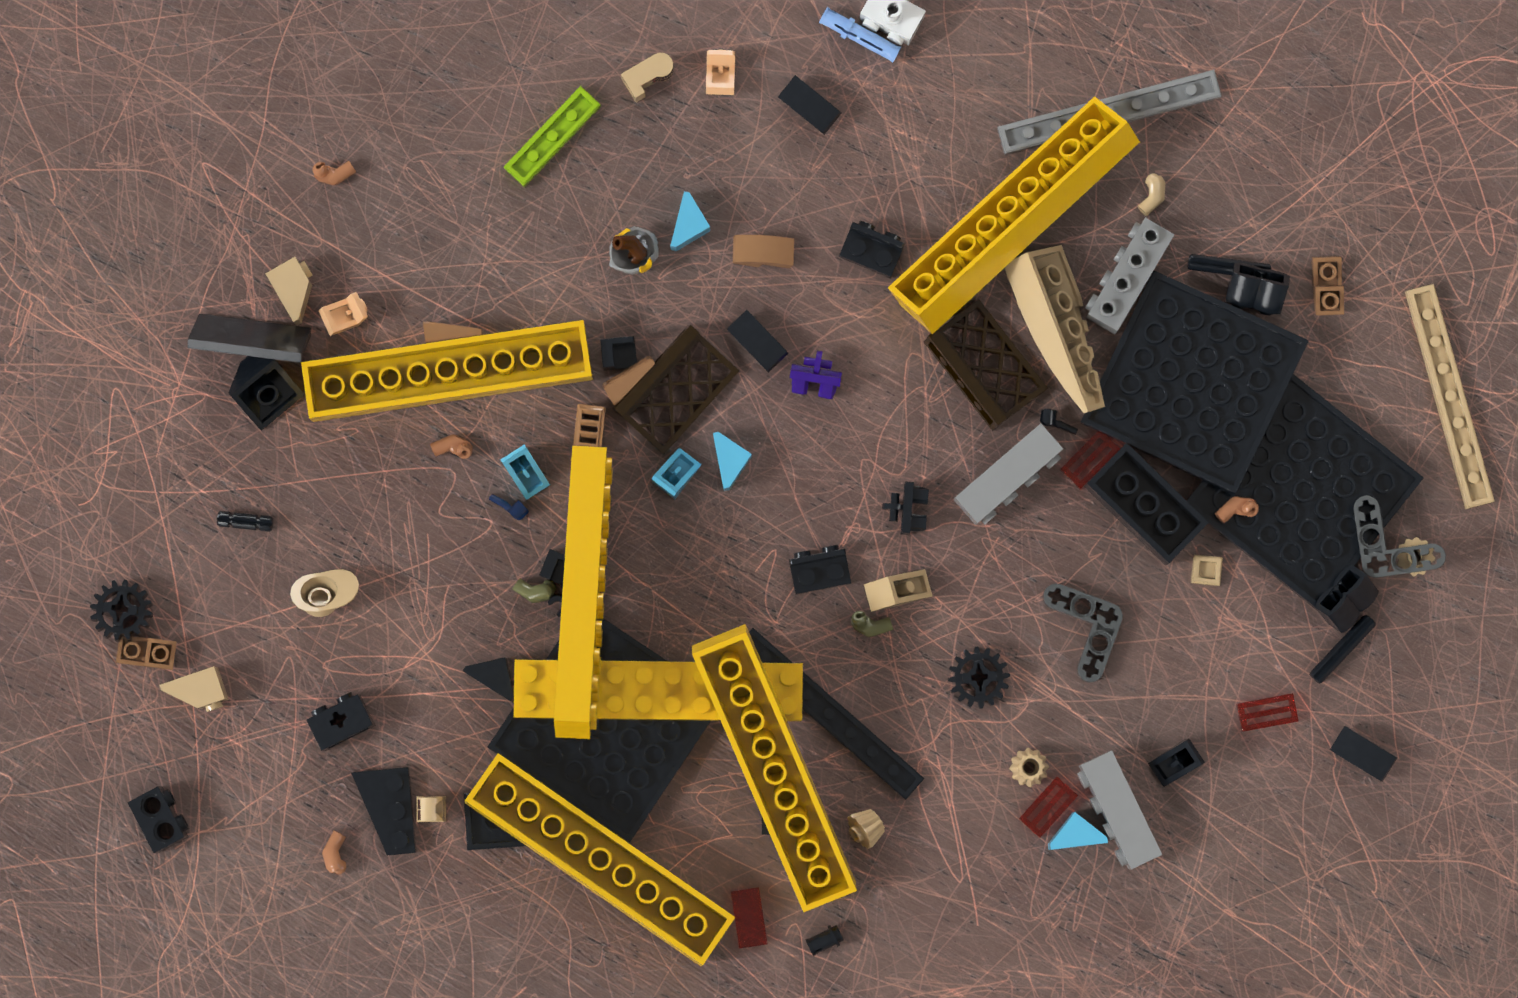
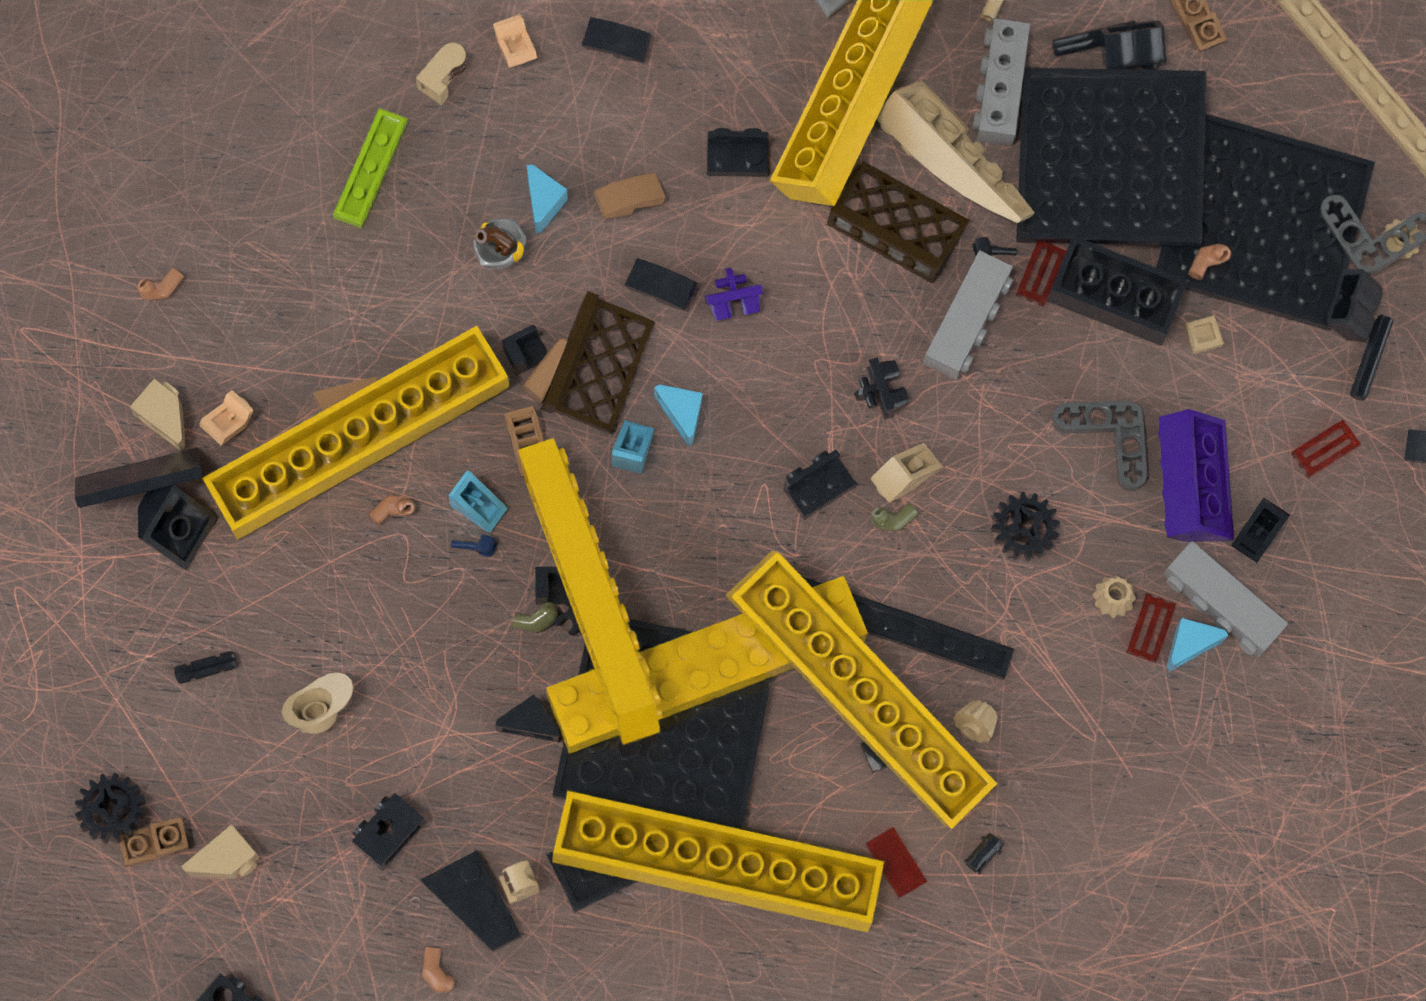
camera: 25 degrees left, 10 degrees down
(1143, 694) = (1195, 477): none -> dark purple slope

